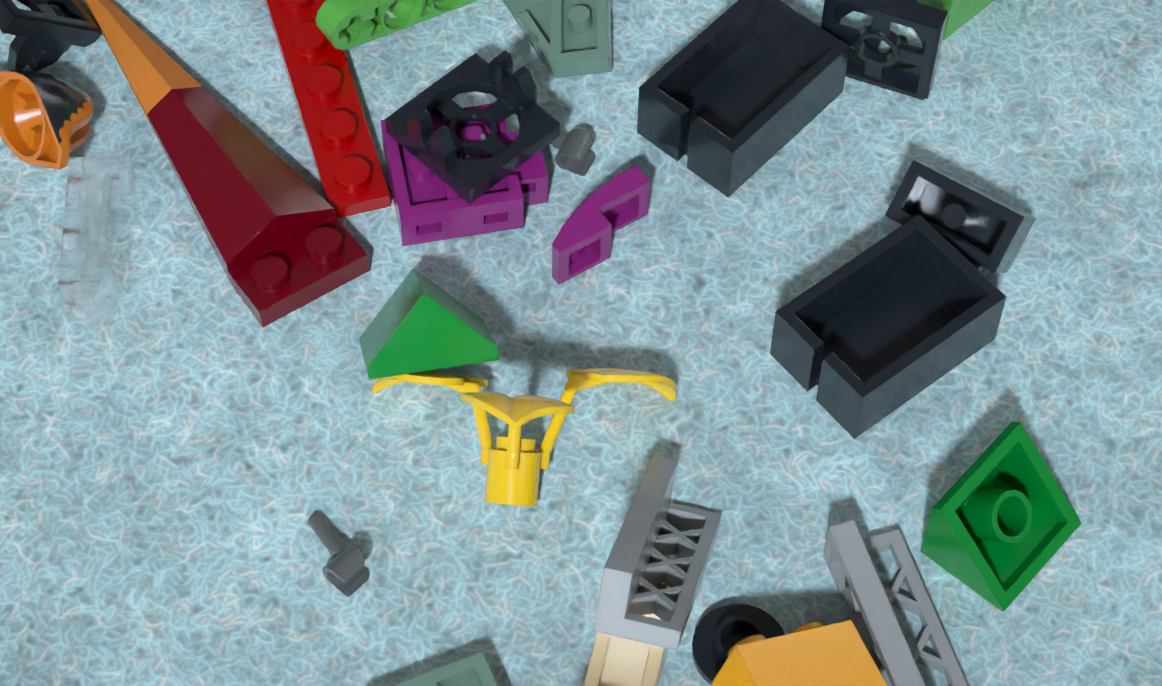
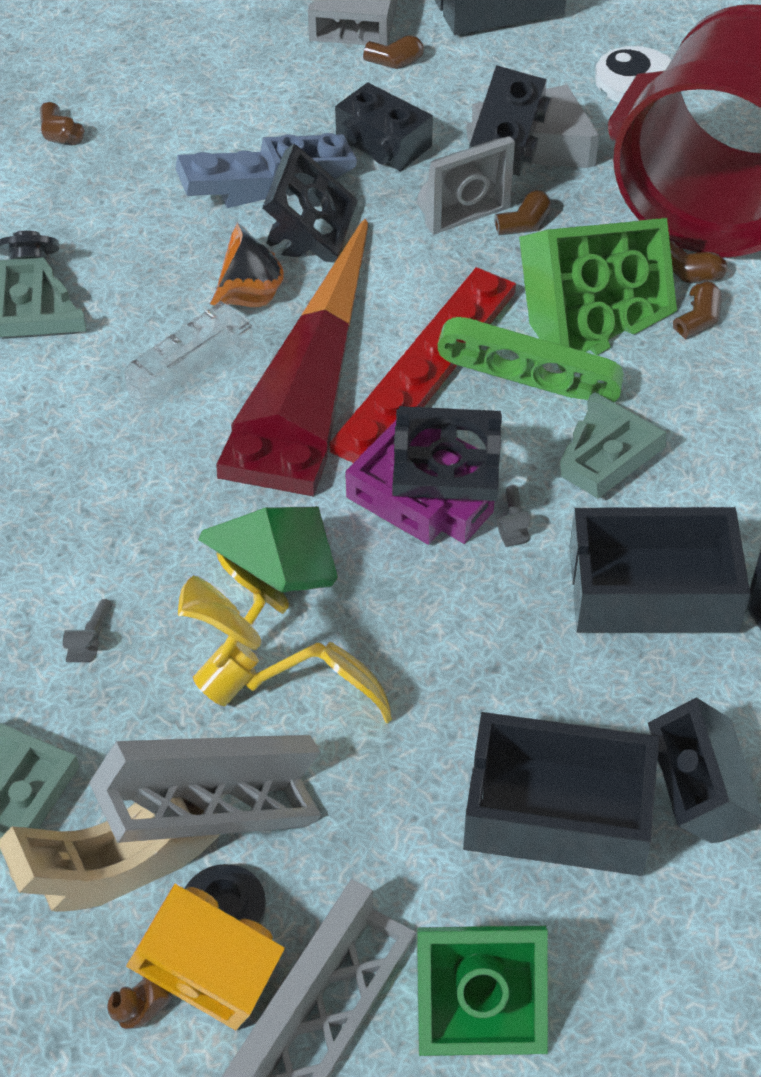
camera: 50 degrees right, 5 degrees down
(587, 233) = (448, 574): magenta slope -> none

